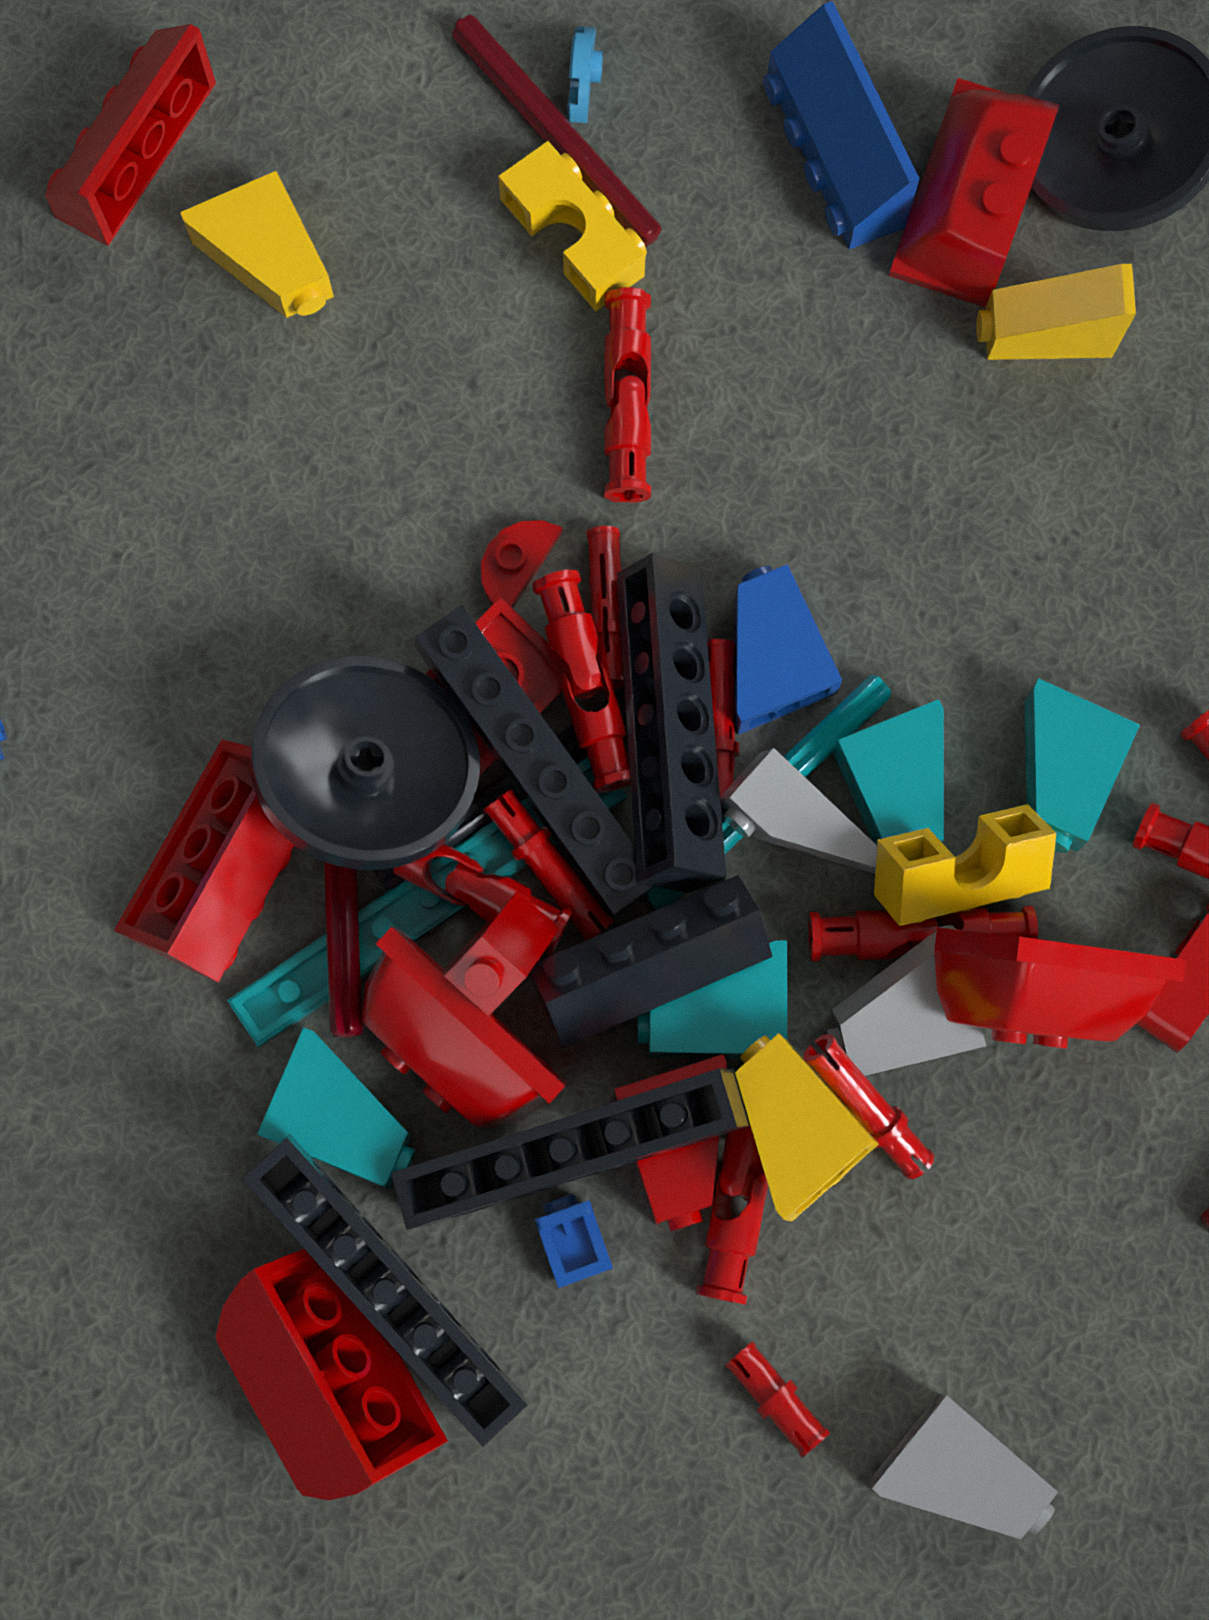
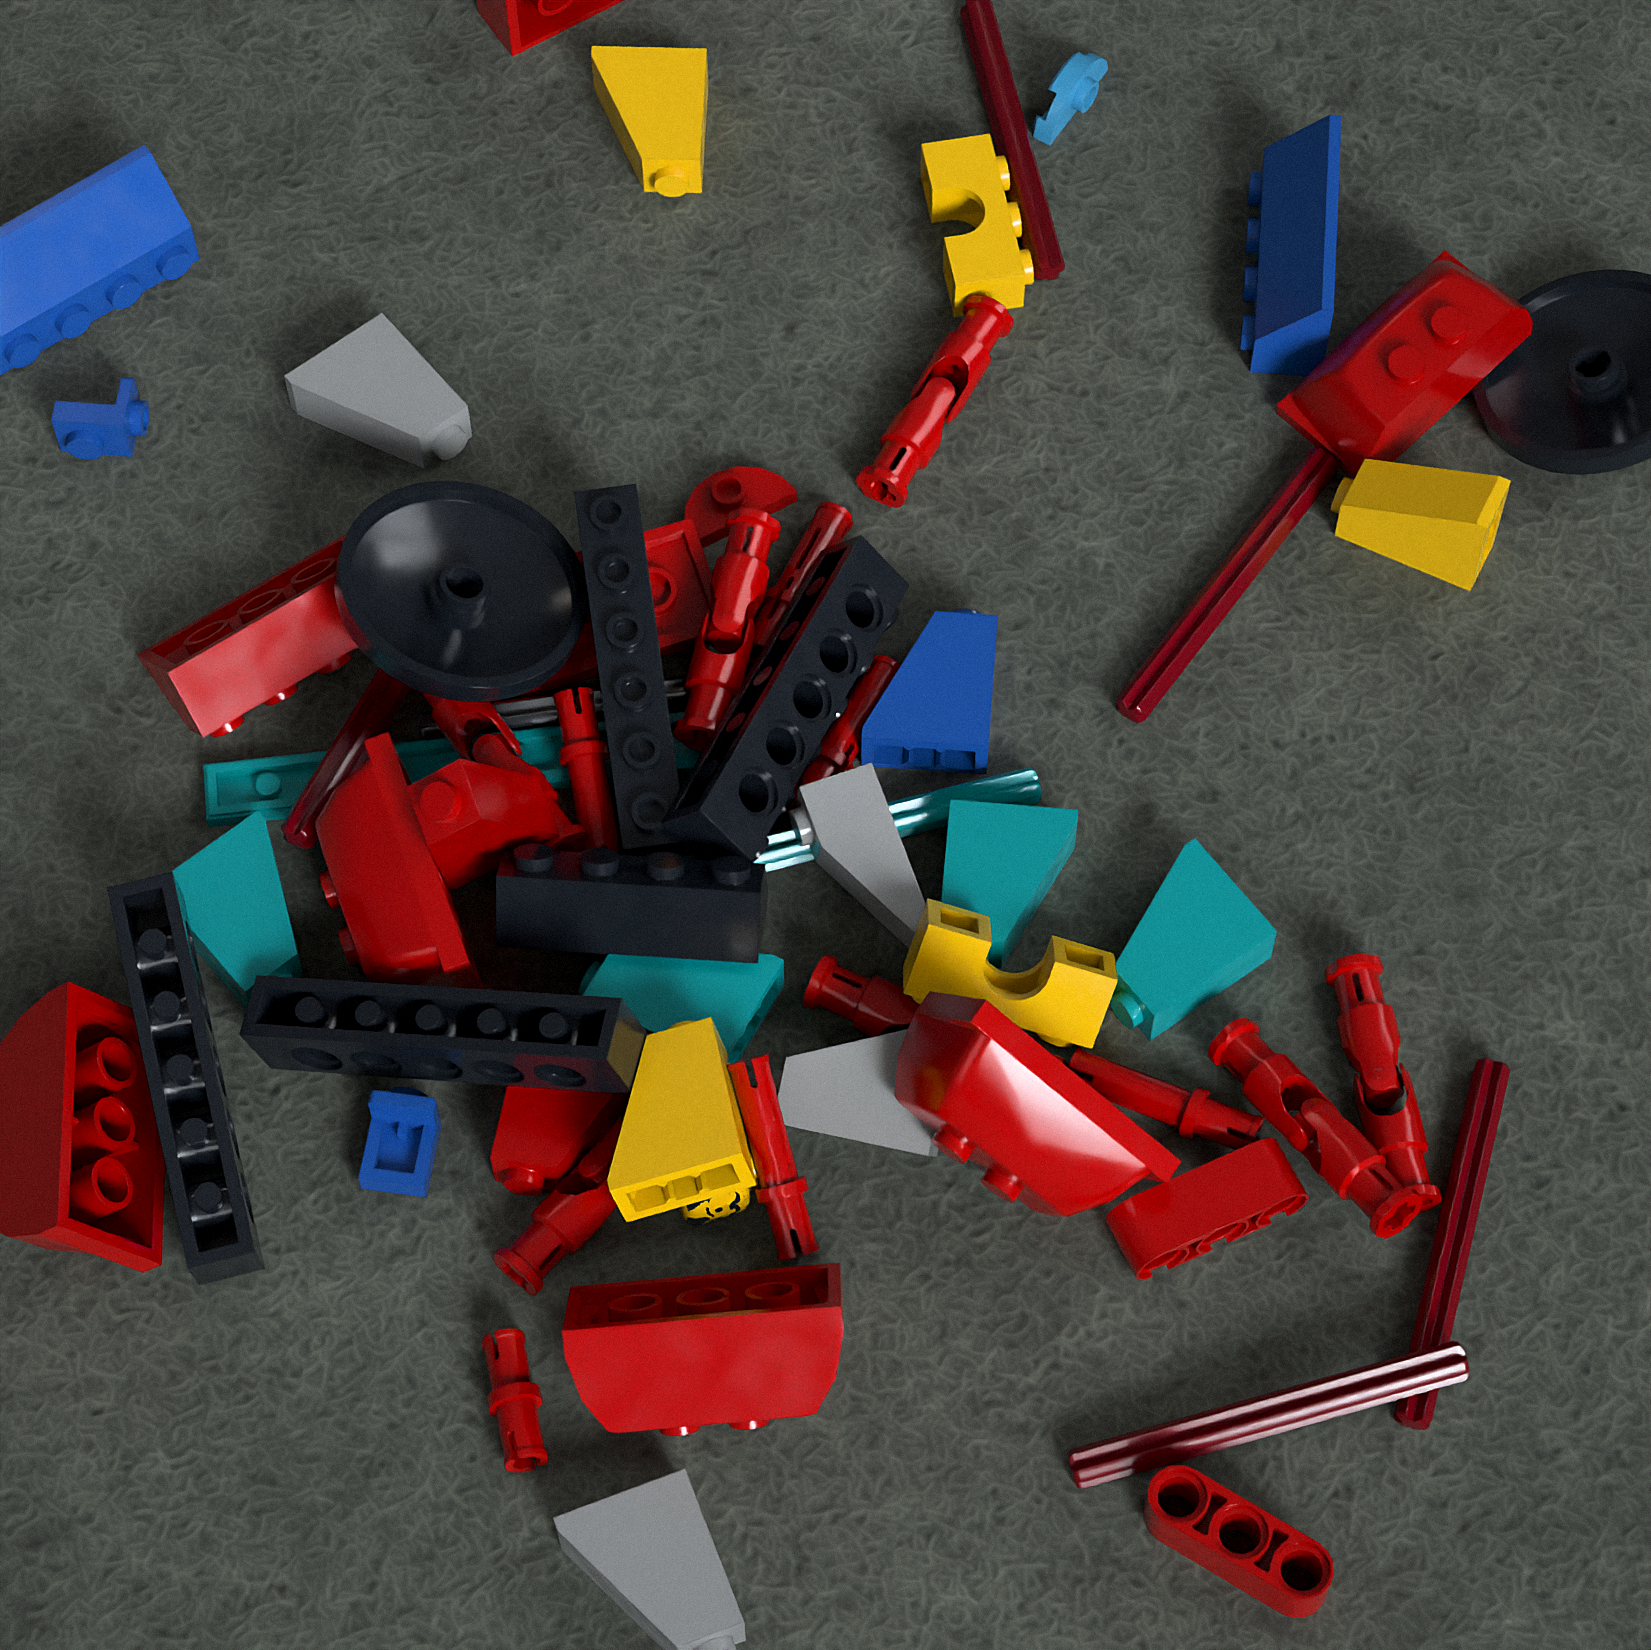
camera: 30 degrees right, 15 degrees down
(185, 607) = (382, 395): none -> light grey slope
(906, 1284) = (706, 1348): none -> red windscreen
(933, 444) = (1226, 585): none -> dark red axle
(1141, 898) = (1187, 1110): none -> red pin

